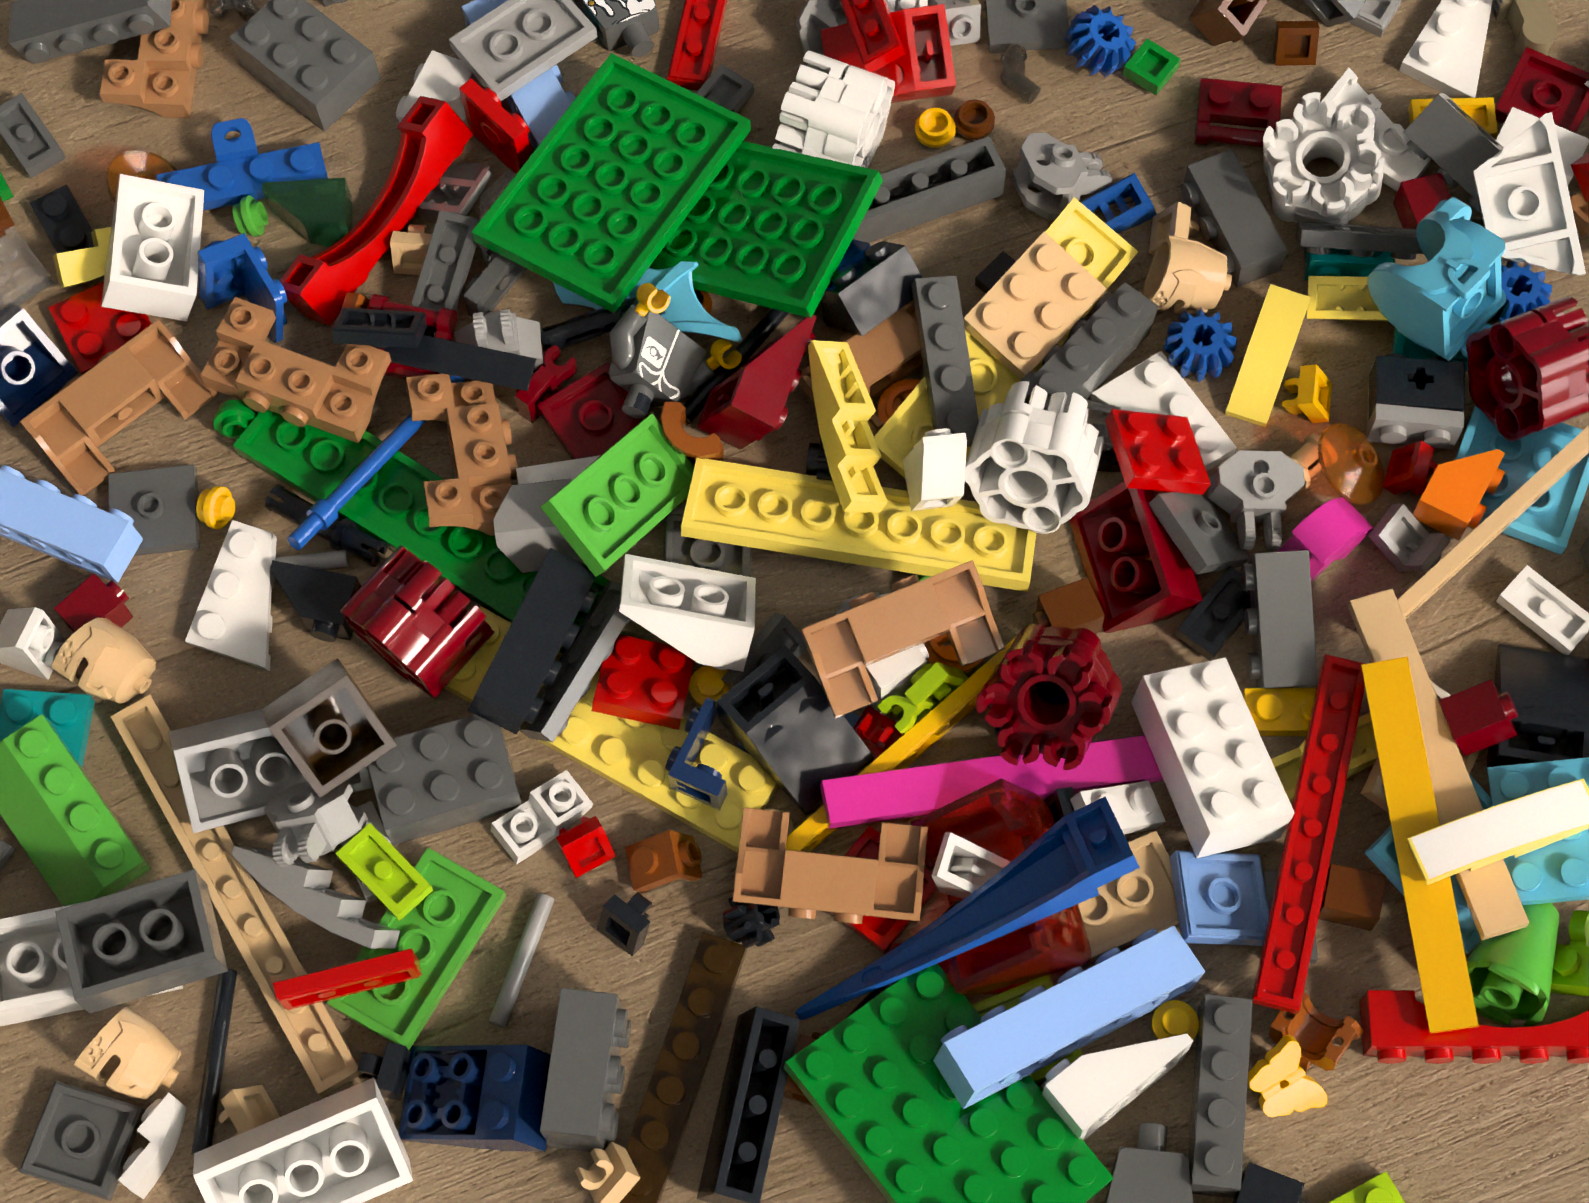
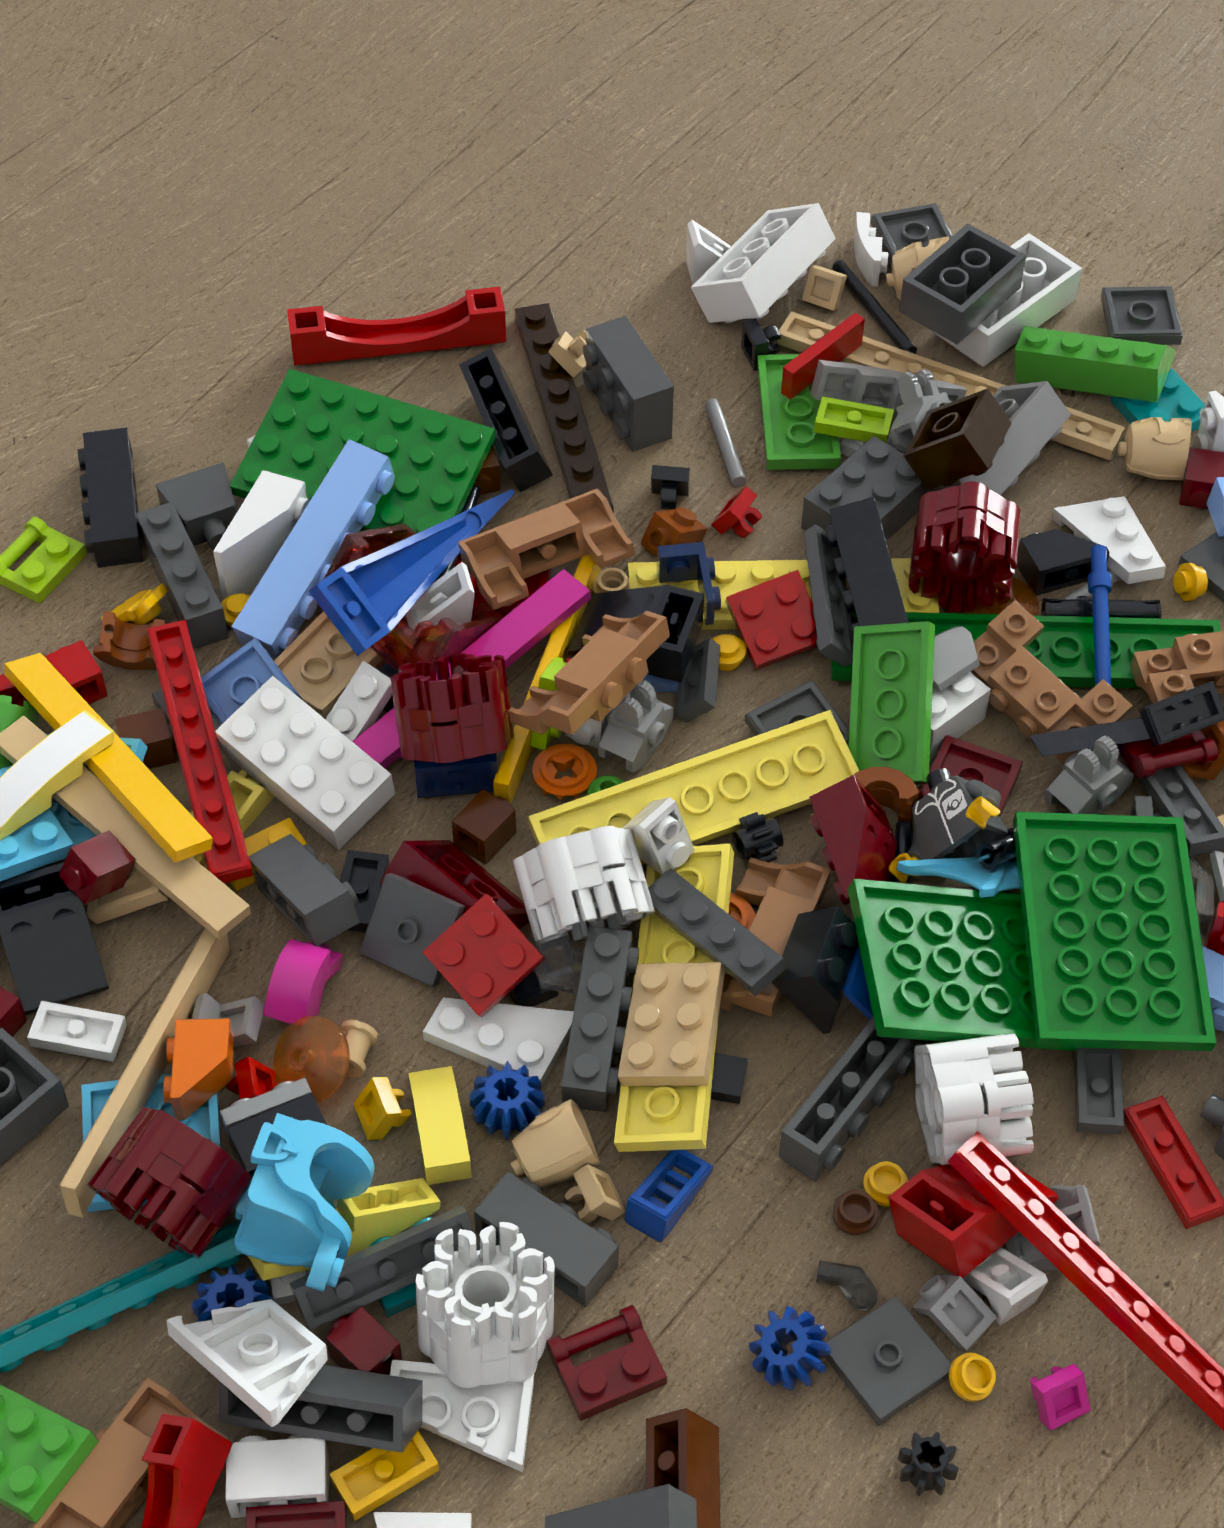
camera: 145 degrees right, 15 degrees down
(476, 1096) = (695, 355): dark blue slope -> none
(538, 820) = (781, 520): white slope -> none
(544, 383) = (1032, 776): dark red plate -> none
(692, 609) = (779, 652): white slope -> none
(843, 417) = (758, 837): light yellow slope -> none
(1058, 173) = (735, 1182): light grey hinge -> none
(1151, 66) = (723, 1360): green plate -> none
(1256, 492) = (383, 985): light grey hinge -> none
(1296, 43) = (592, 1467): reddish brown tile -> none

